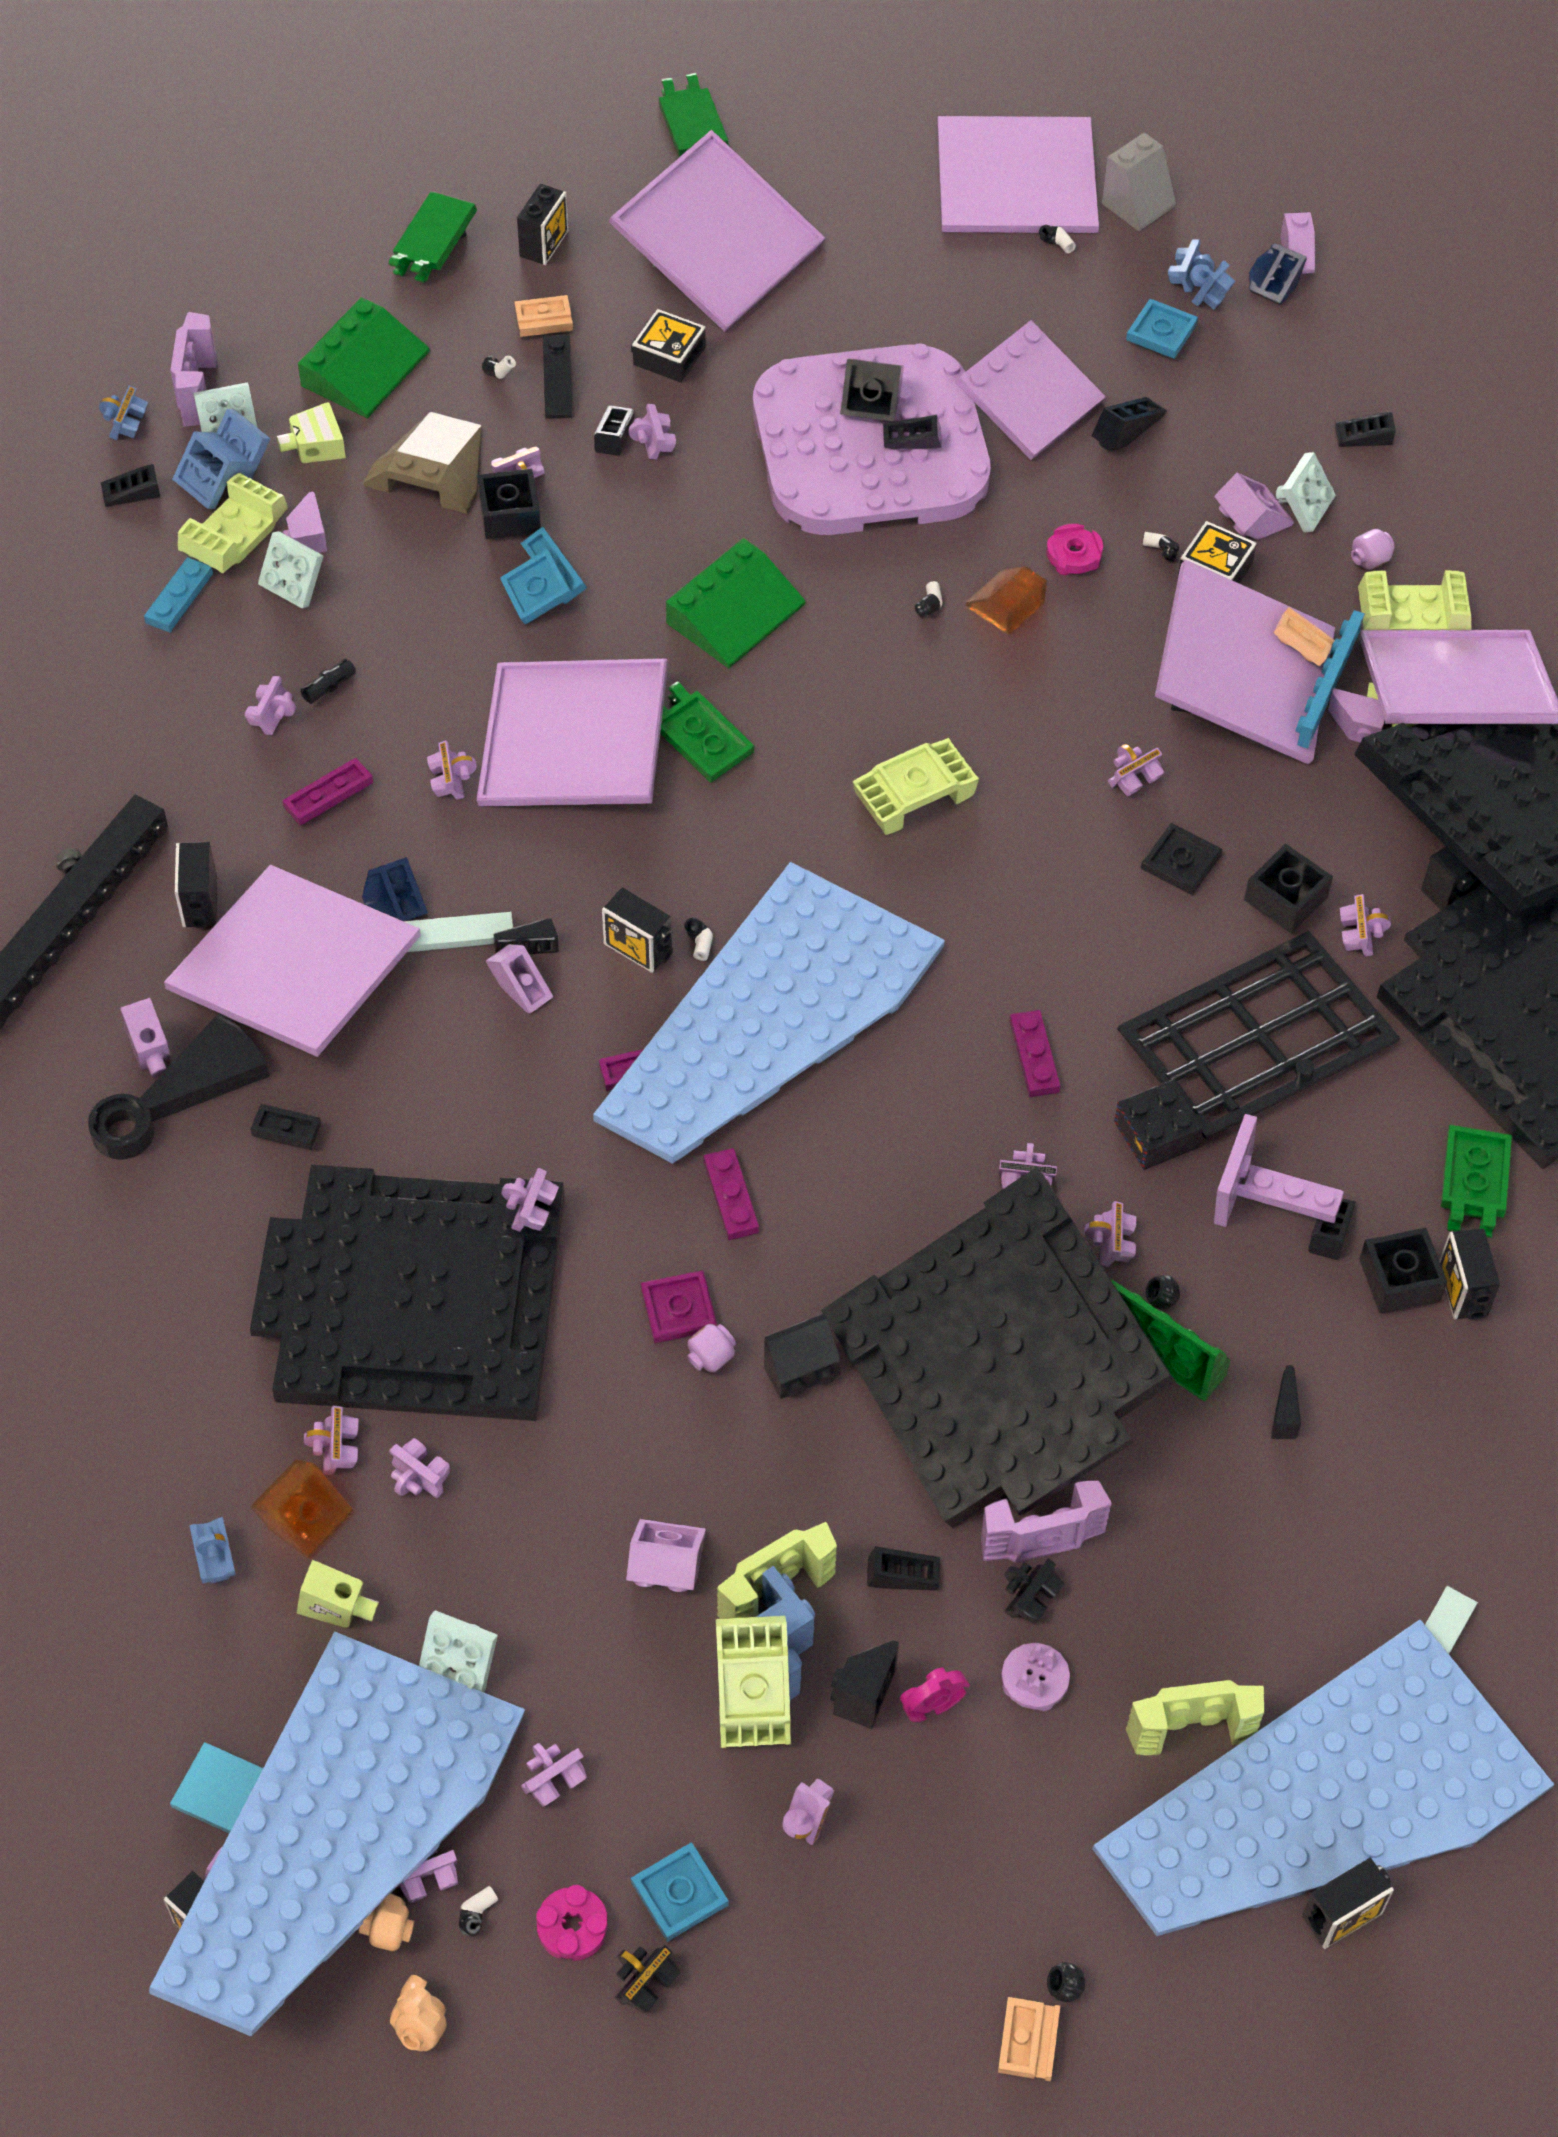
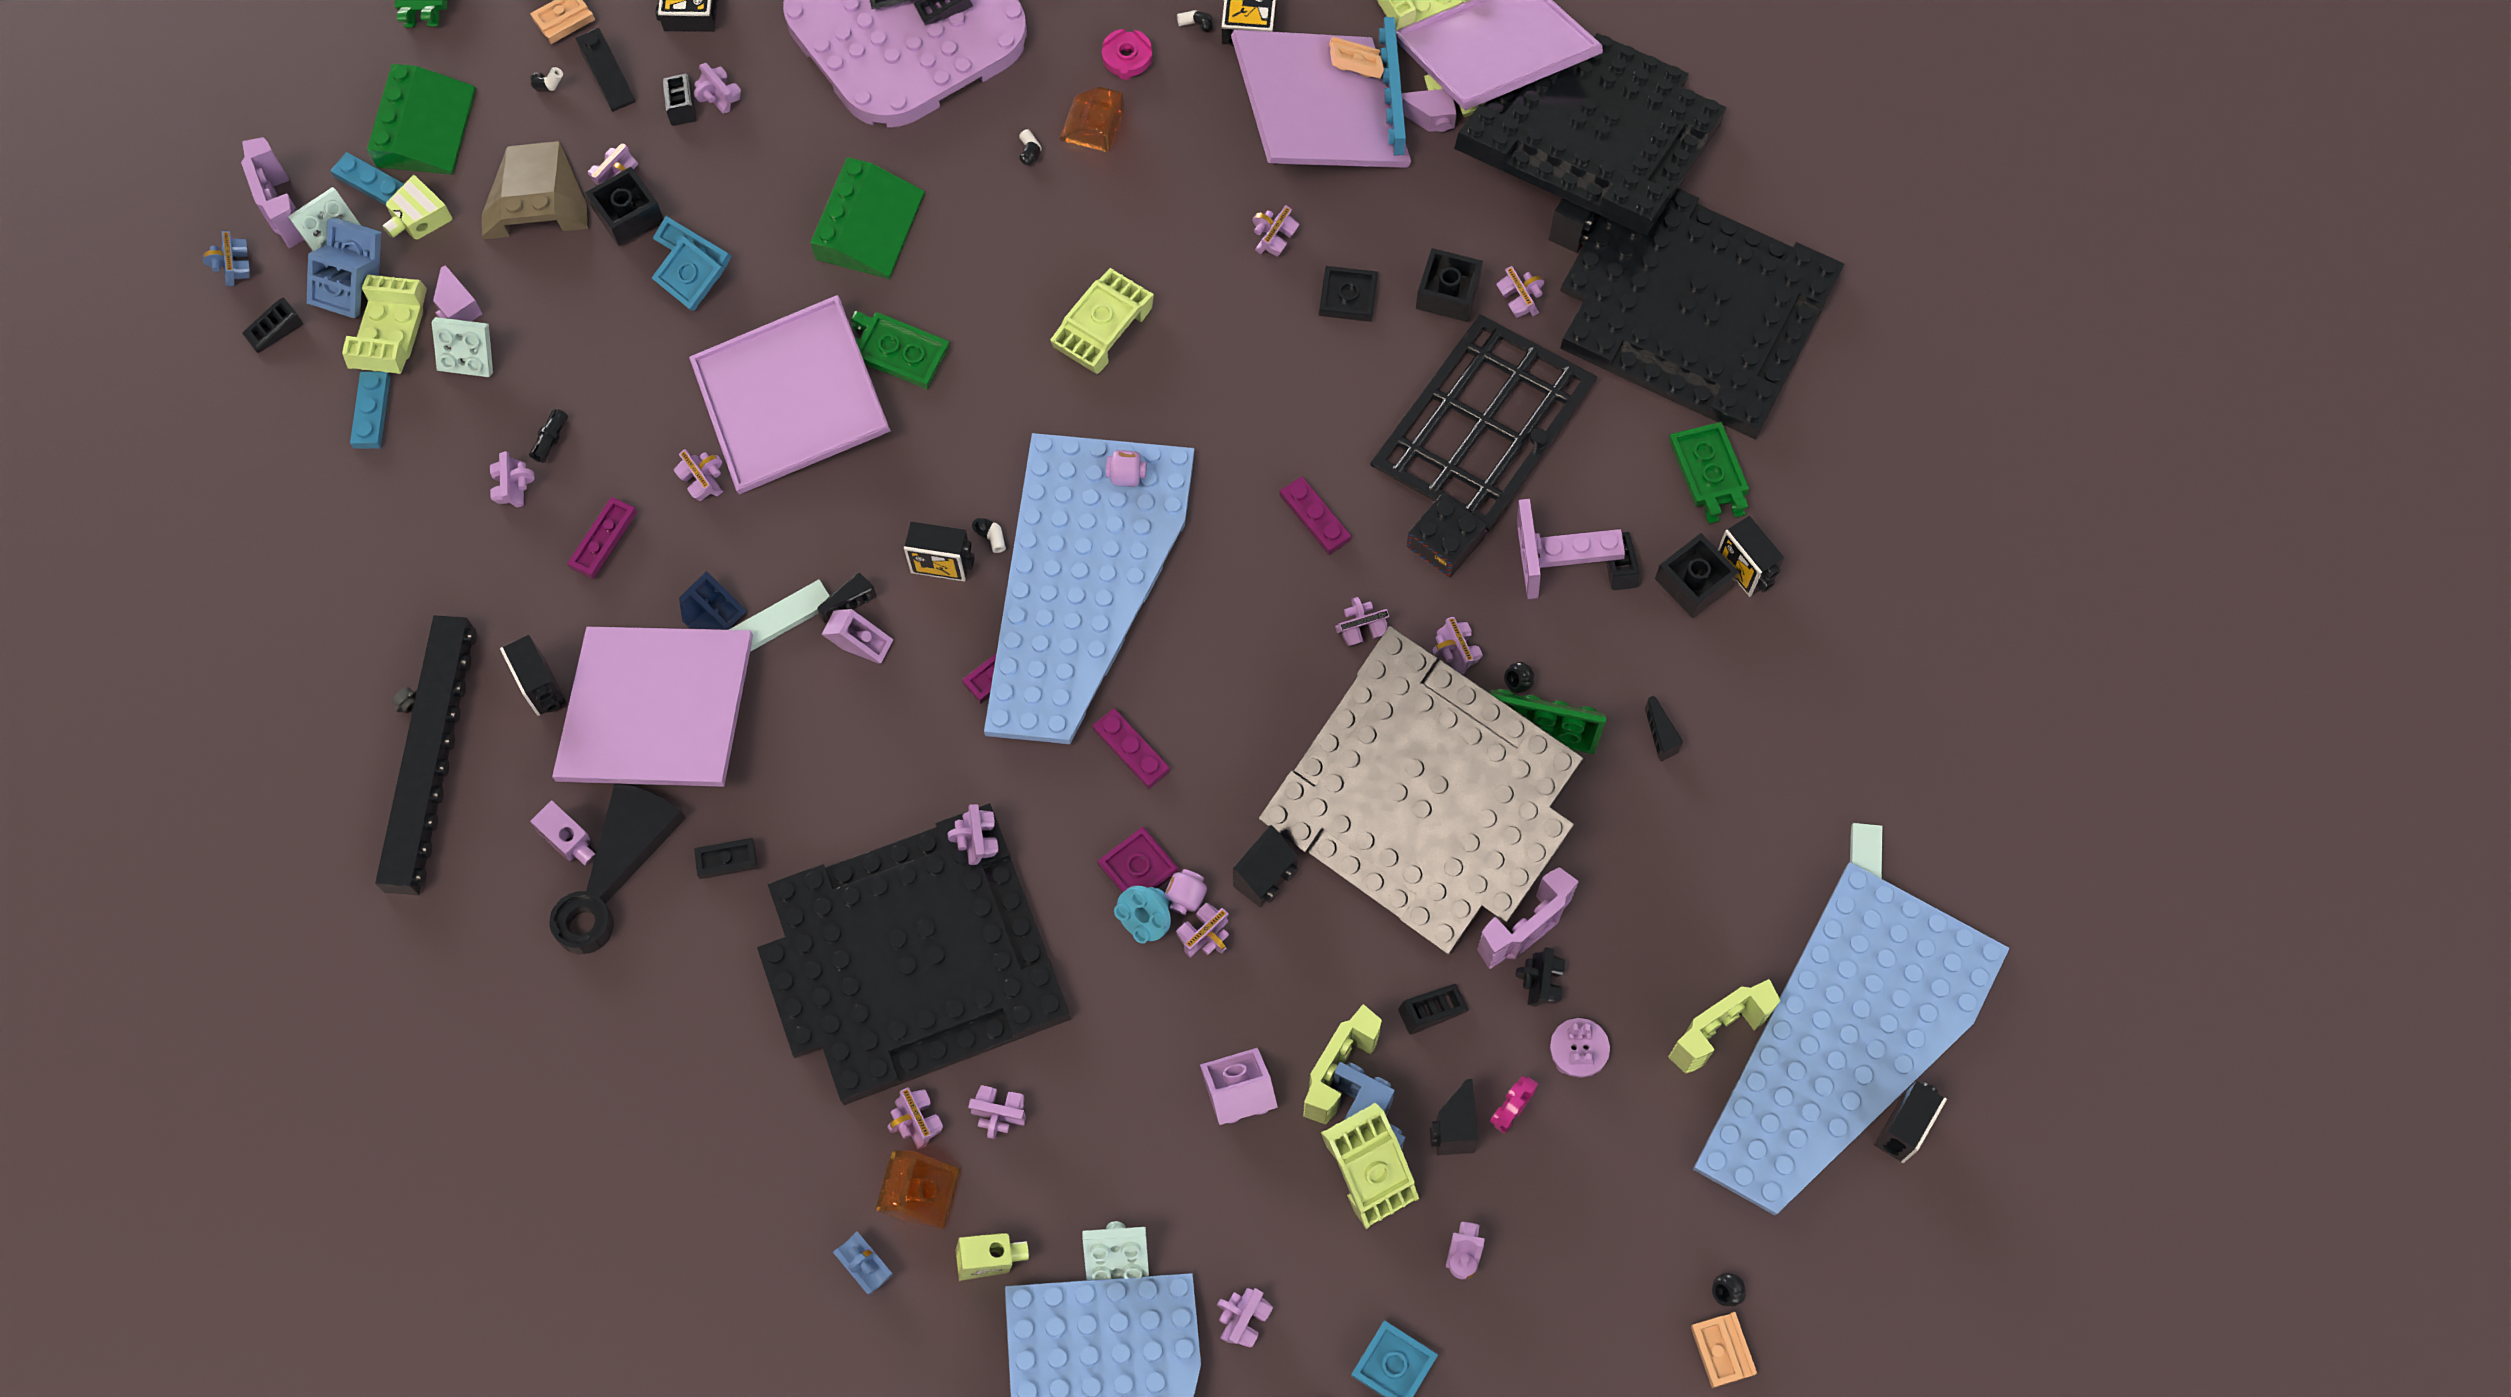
camera: 25 degrees left, 10 degrees up
(284, 389) = (365, 178): none -> dark azure plate
(658, 1348) = (1144, 913): none -> medium azure plate
(712, 1398) = (1213, 923): none -> lavender hips
(862, 927) = (1125, 468): none -> lavender head

